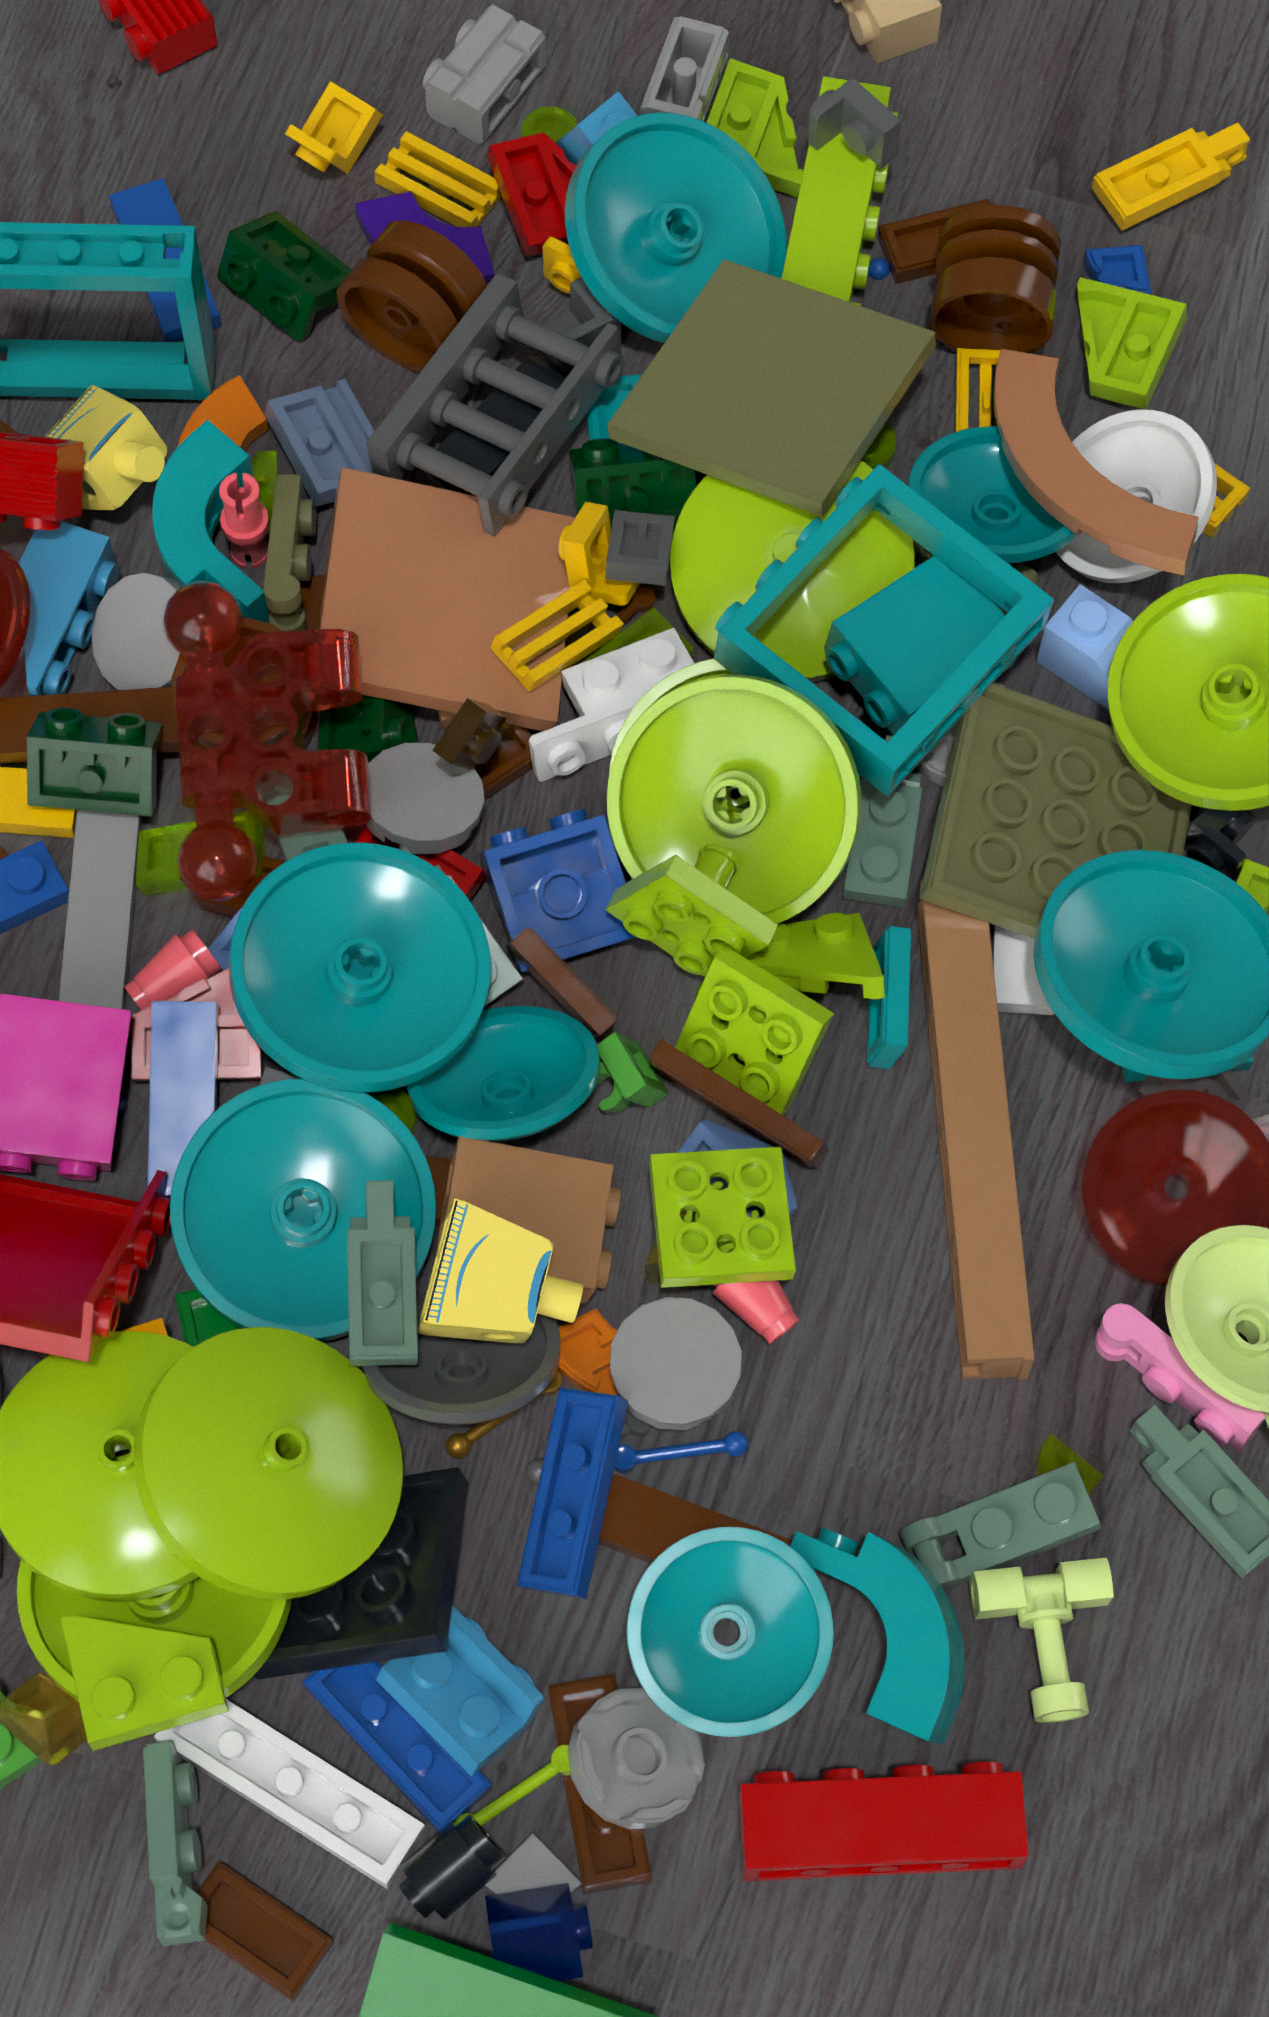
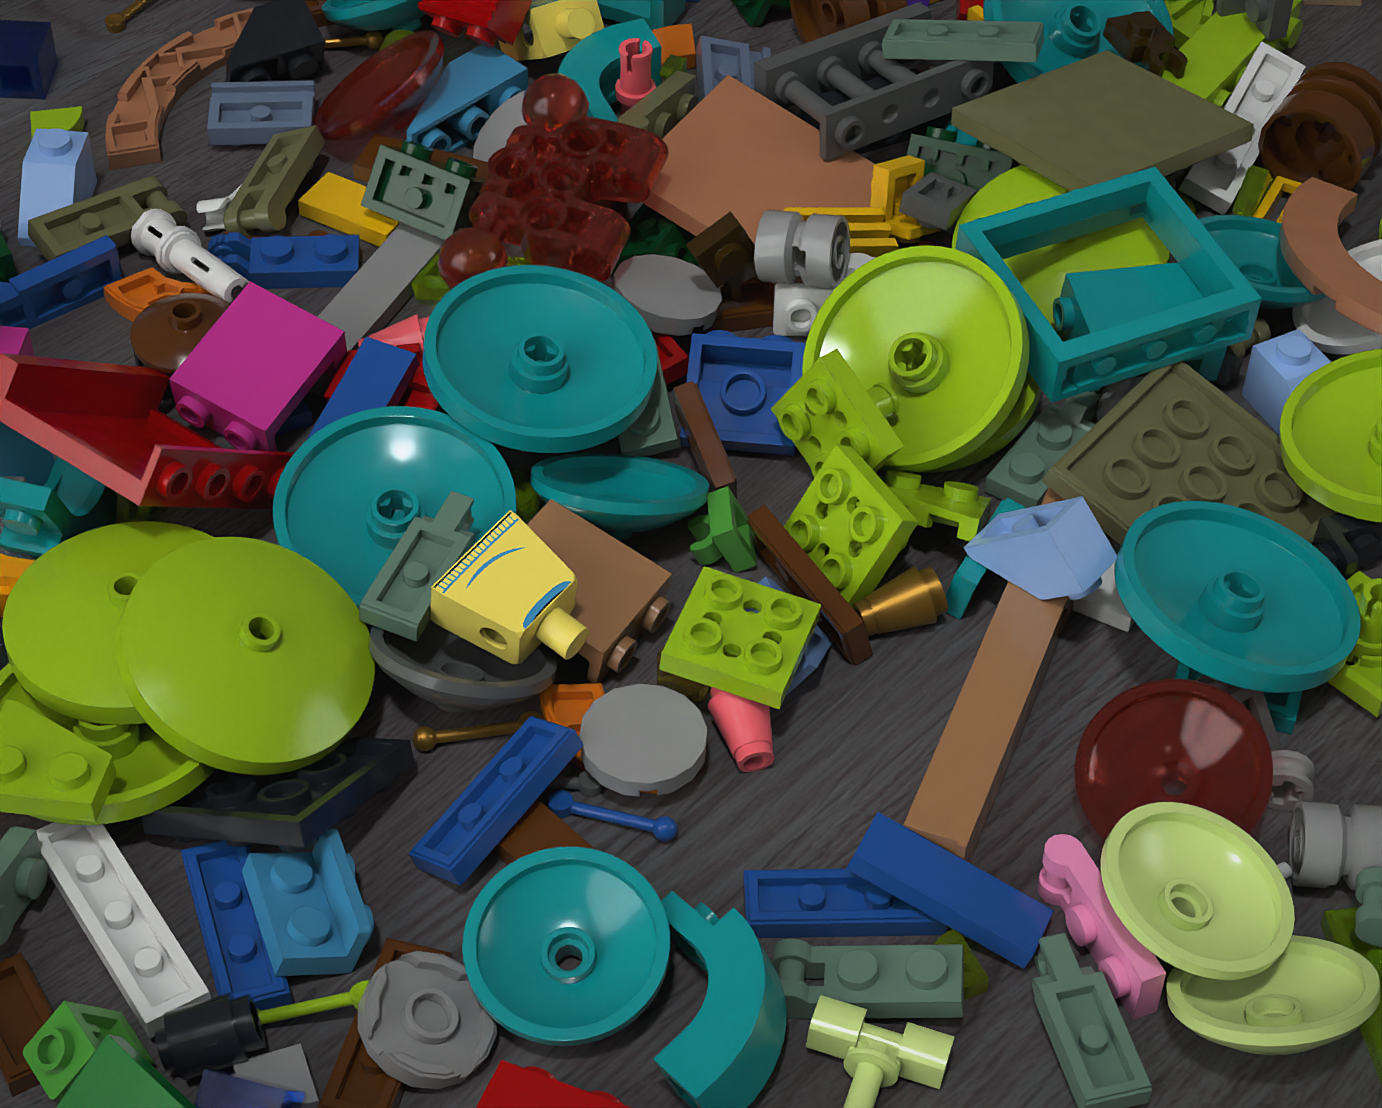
camera: 25 degrees right, 20 degrees down
(344, 1937) = (69, 1041): none -> bright green bracket
(548, 697) = (799, 248): none -> light grey wheel
(580, 327) = (963, 40): none -> sand green tile
(760, 230) = (1145, 40): none -> dark brown plate
(835, 1085) = (903, 603): none -> pearl gold cone
(905, 273) = (1255, 98): none -> white plate
(936, 1449) = (827, 905): none -> blue tile
(945, 384) = (1252, 191): none -> clear neon green tile
(962, 990) = (1046, 549): none -> light blue slope
(1032, 1402) = (950, 890): none -> blue tile

